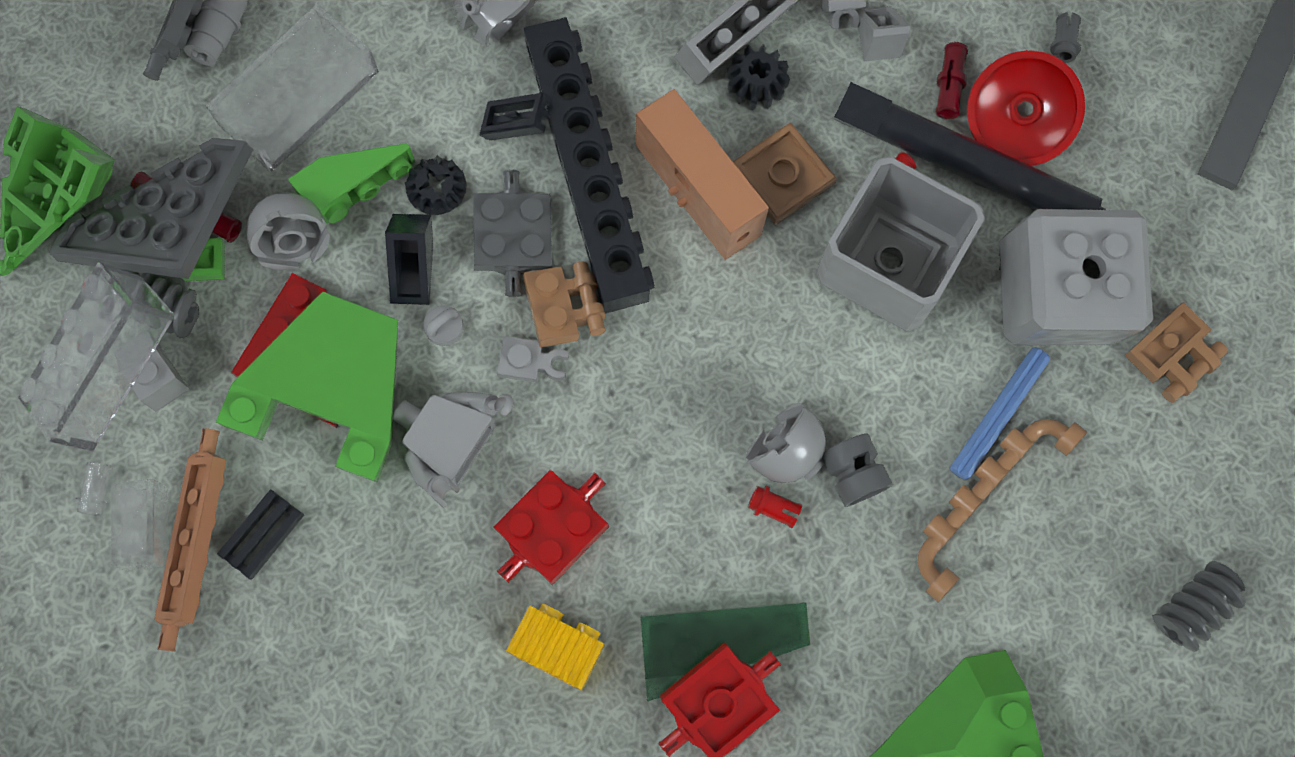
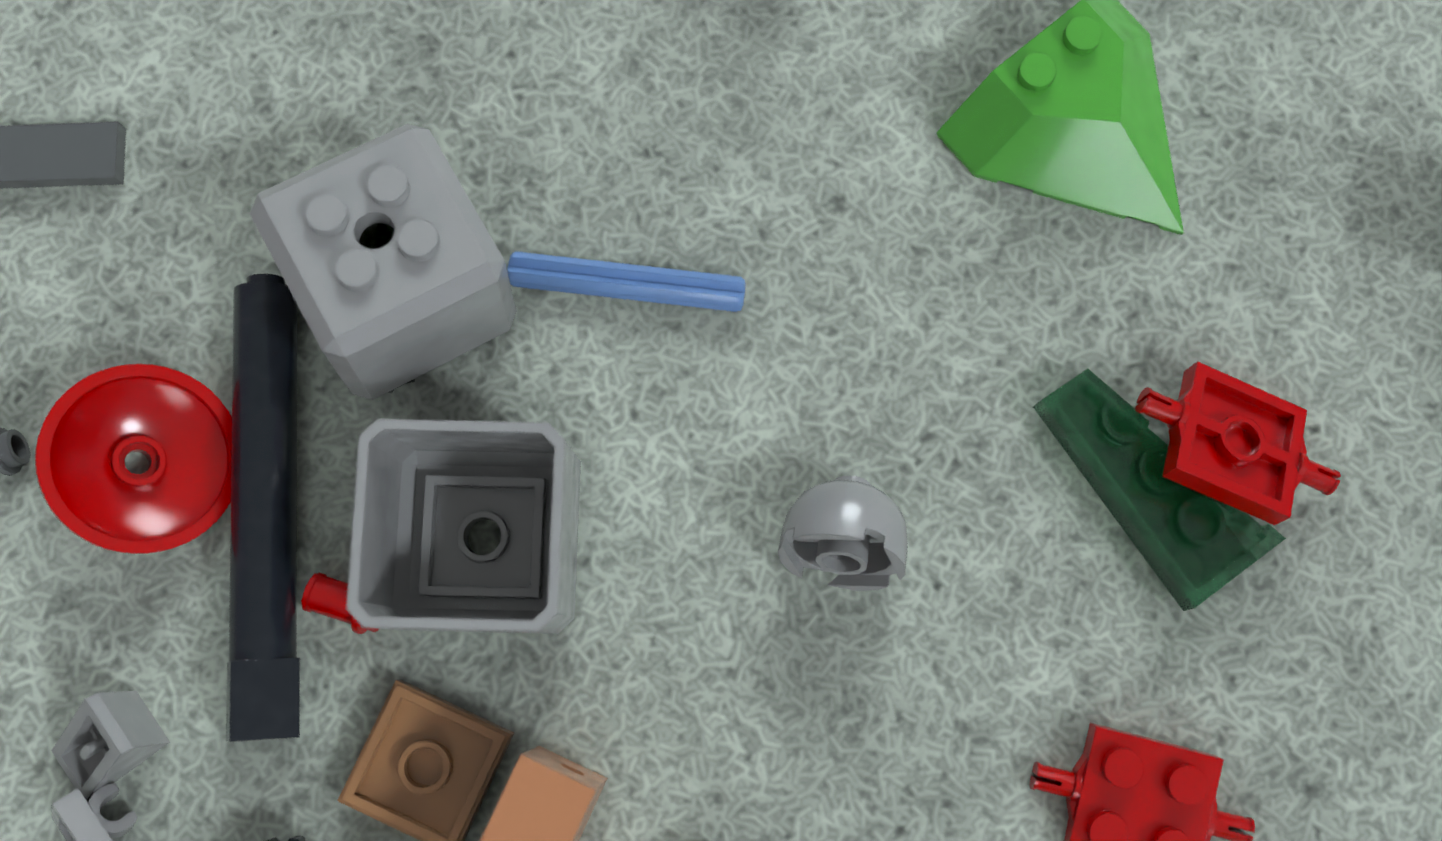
camera: 115 degrees left, 5 degrees up
(555, 646) = (1299, 700): yellow brick -> none
(771, 505) = (931, 512): red pin -> none
(868, 477) = (835, 408): dark grey wheel -> none
(951, 80) = (140, 592): dark red pin -> none
(967, 500) = (773, 263): medium nougat bar -> none
(1167, 343) = (388, 100): medium nougat plate -> none

